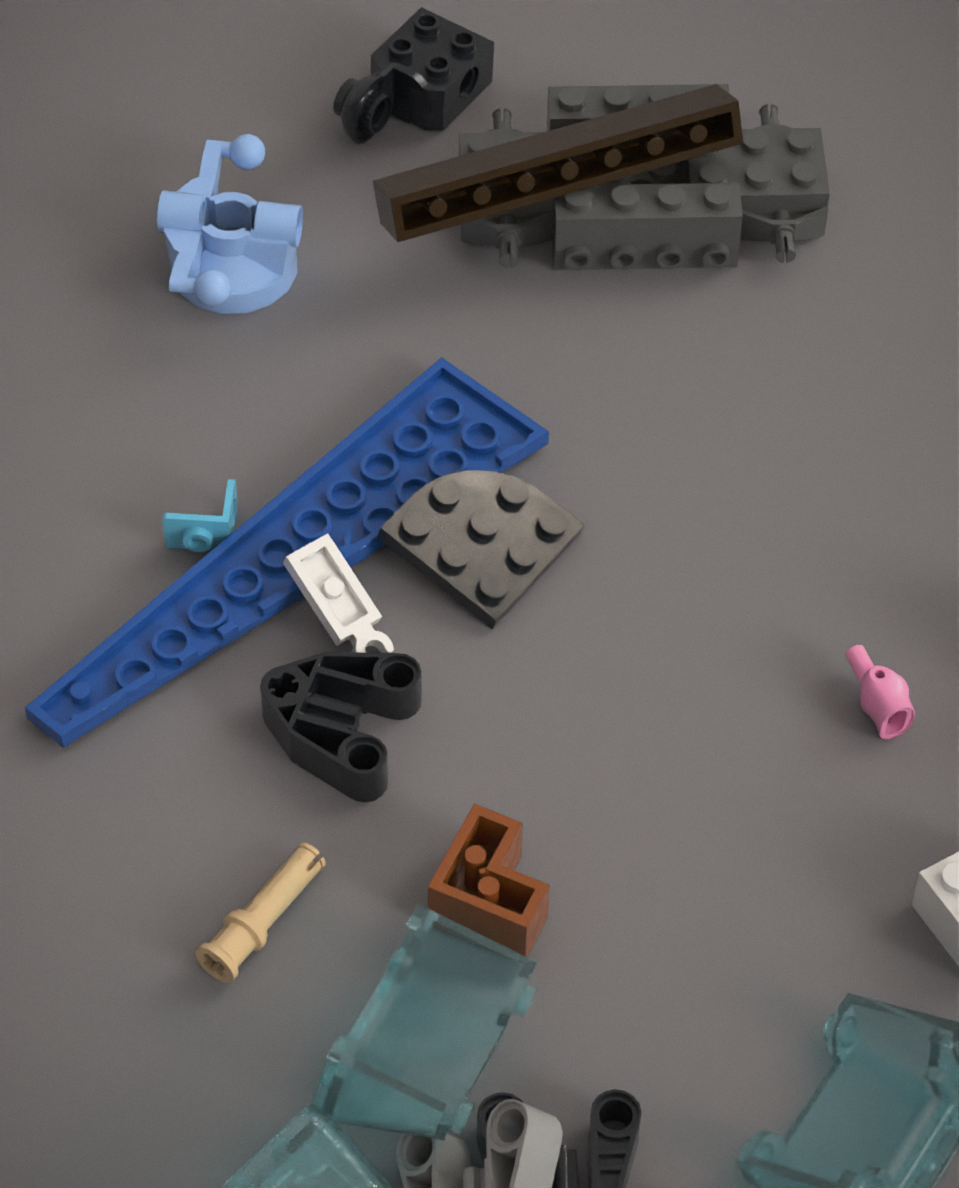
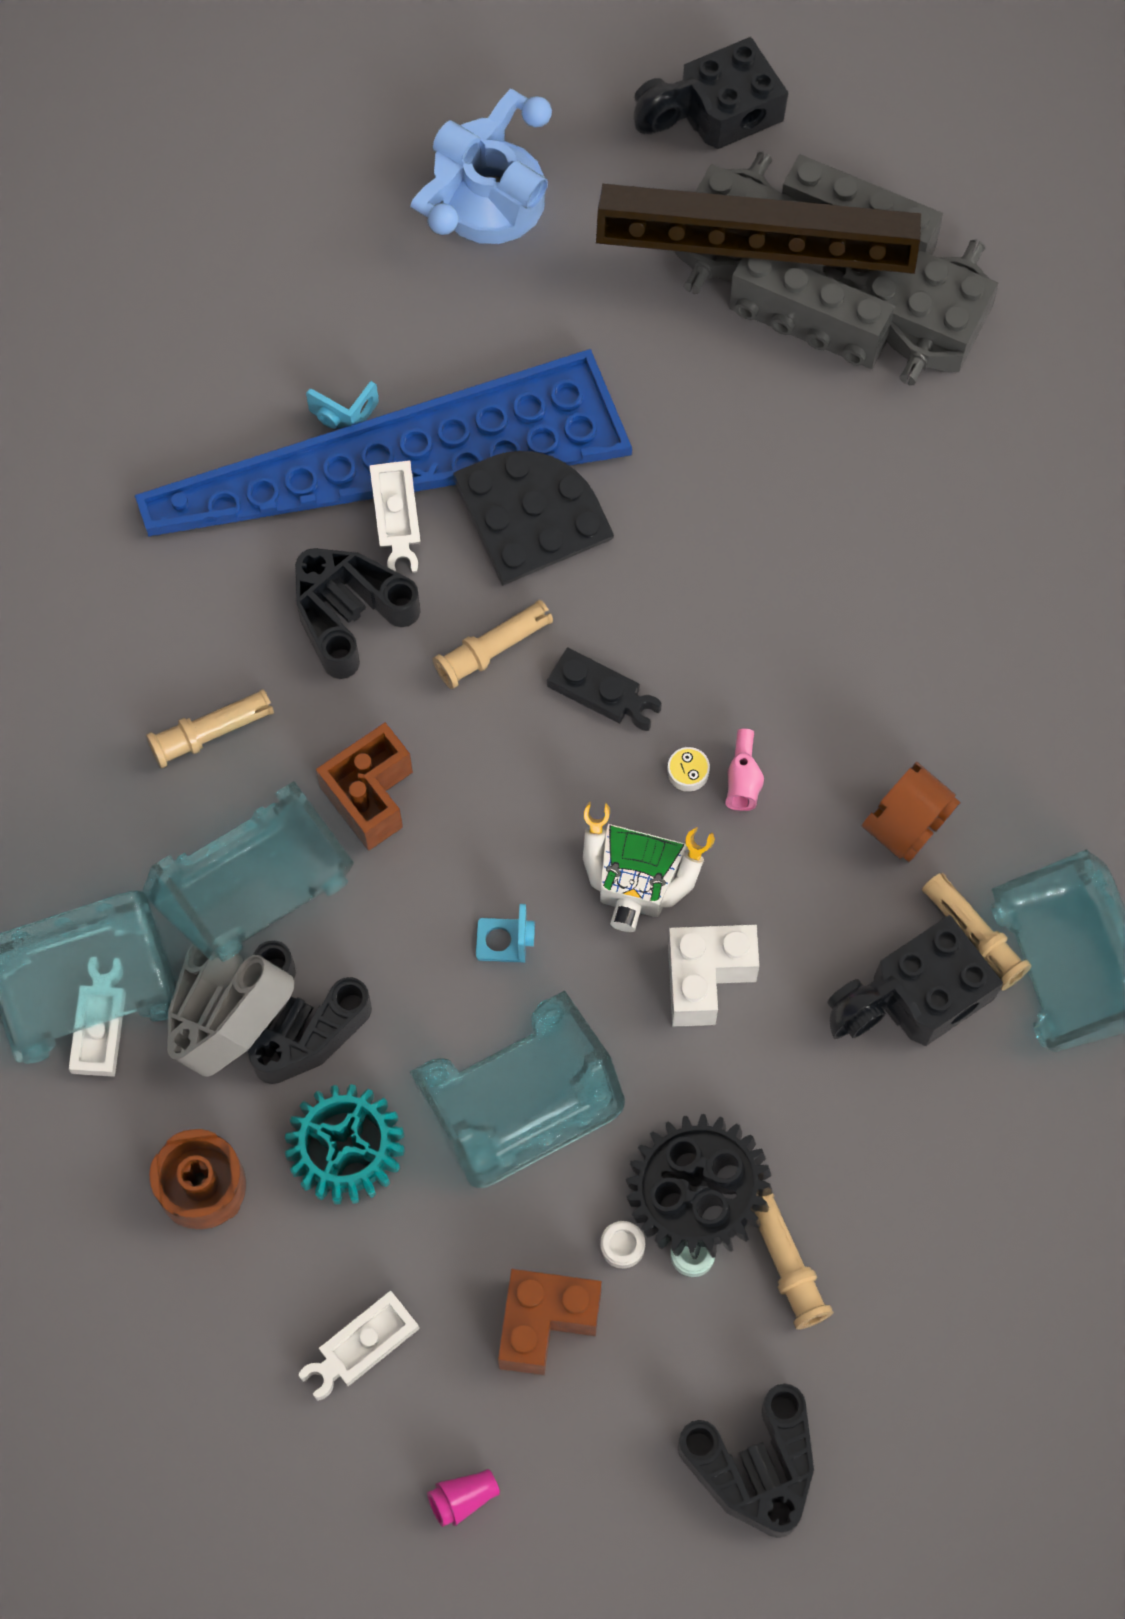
camera: 30 degrees right, 15 degrees up
(514, 701) = (476, 652): none -> tan pin
(671, 681) = (601, 689): none -> black plate
(754, 966) = (521, 933): none -> medium azure bracket
(815, 718) = (688, 769): none -> tile
(838, 836) = (639, 869): none -> torso

